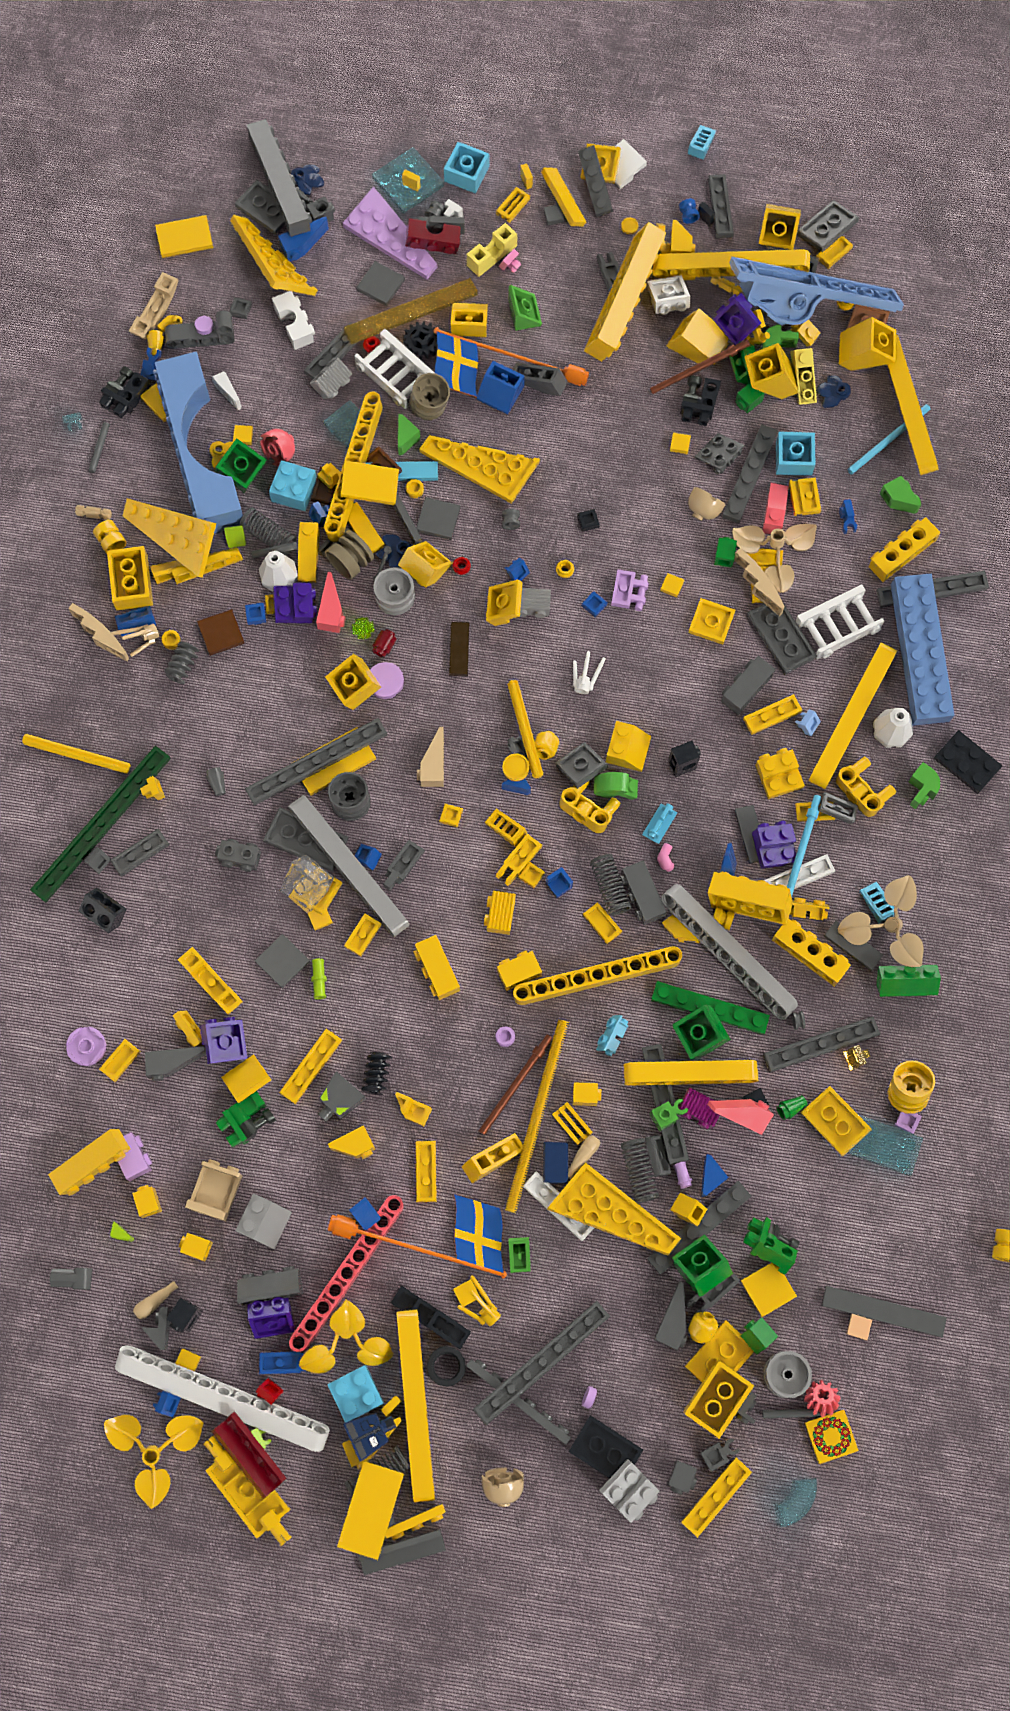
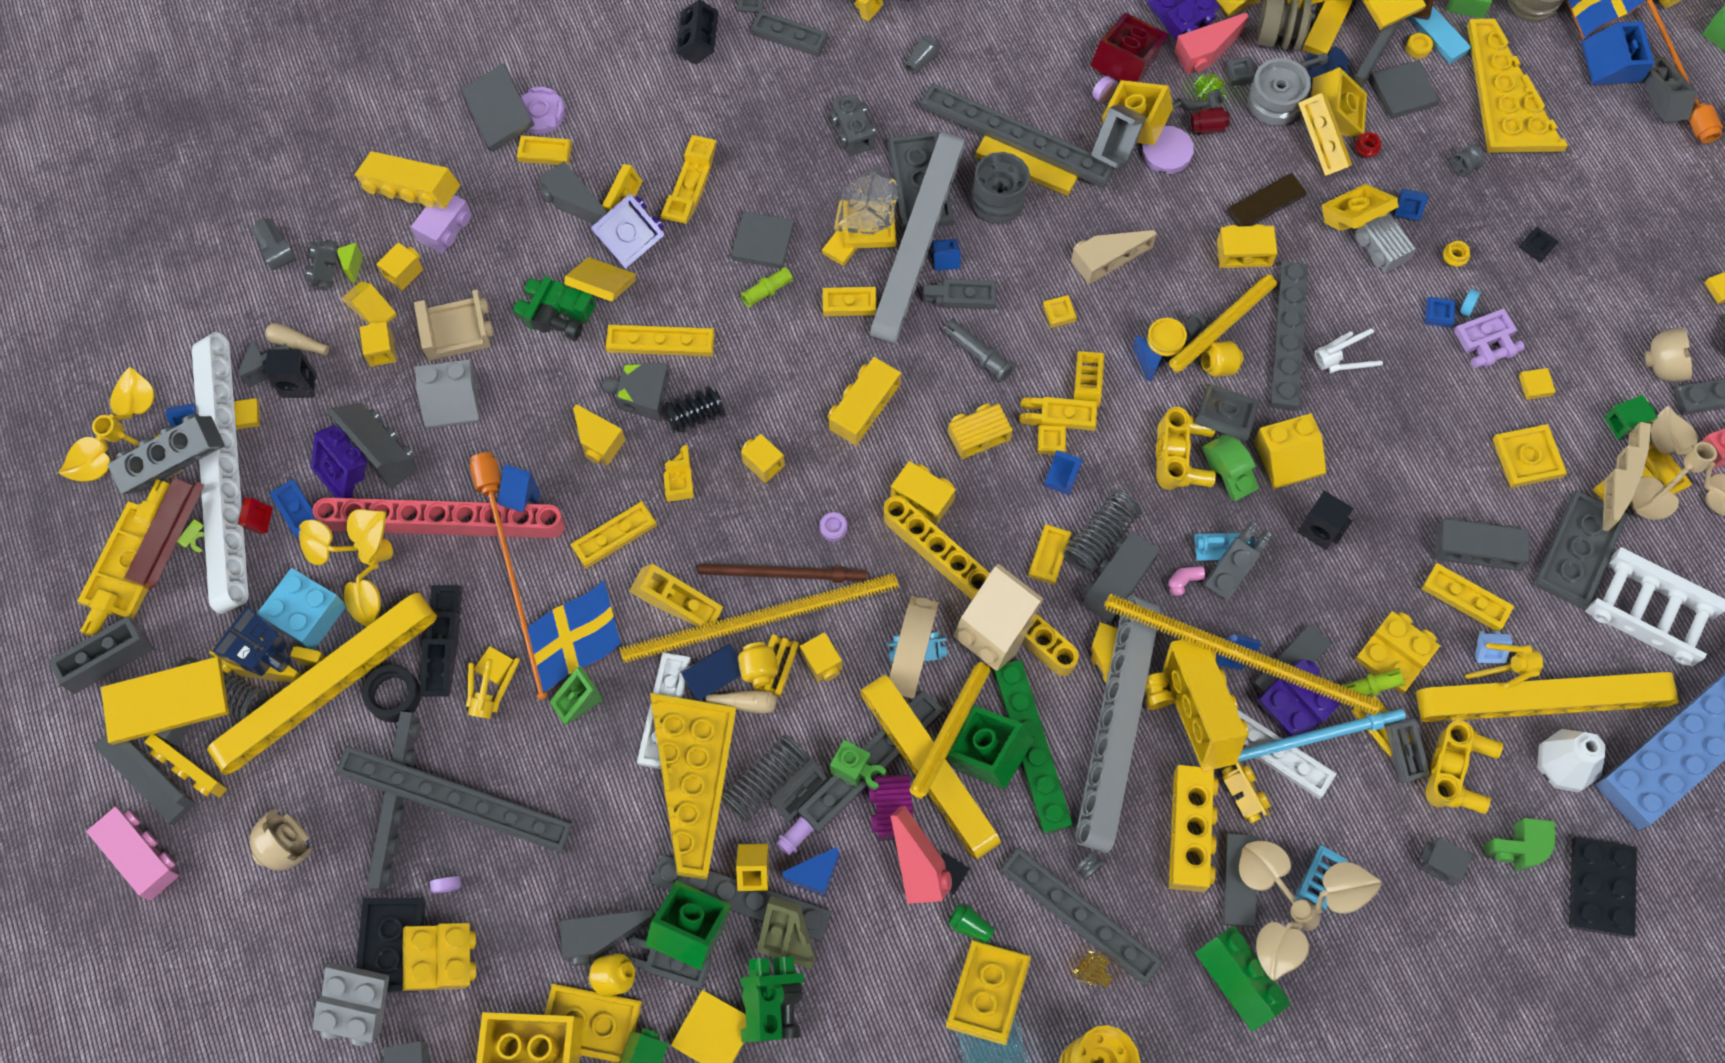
camera: 60 degrees right, 5 degrees down
(67, 1072) = (498, 107): none -> dark grey tile
(100, 1250) = (323, 254): none -> dark grey hinge
(159, 1238) = (369, 303): none -> yellow slope
(191, 1458) = (202, 441): none -> brick
(301, 655) = (1128, 49): none -> dark red slope
(307, 1539) = (100, 655): none -> dark grey brick
(319, 689) = (1104, 89): none -> lavender tile
(360, 601) = (1239, 71): none -> dark grey tile
(366, 705) = (1118, 136): none -> dark grey panel
(373, 631) = (1214, 97): none -> dark grey piece
(434, 1051) = (762, 458): none -> yellow brick
(442, 586) = (1325, 133): none -> yellow plate
(452, 1581) = (134, 852): none -> bright pink brick
(456, 876) = (988, 357): none -> dark grey pin
(482, 681) = (1246, 246): none -> yellow brick
(553, 696) = (1289, 336): none -> dark grey plate
(570, 1133) = (758, 664): none -> yellow head
(600, 583) = (1470, 302): none -> medium azure tile
(613, 1034) = (913, 645): none -> tan arch
(631, 978) = (998, 618): none -> tan slope
(632, 1424) = (438, 957): none -> yellow plate
(676, 823) = (1236, 562): none -> dark grey hinge
(679, 1047) = (949, 730): none -> yellow axle
(737, 1213) = (786, 933): none -> olive wing
(738, 860) = (1255, 659): none -> yellow axle
(791, 800) = (1377, 683): none -> lime pin
(828, 712) = (1525, 662): none -> yellow plant
(908, 832) = (1445, 861): none -> dark grey brick

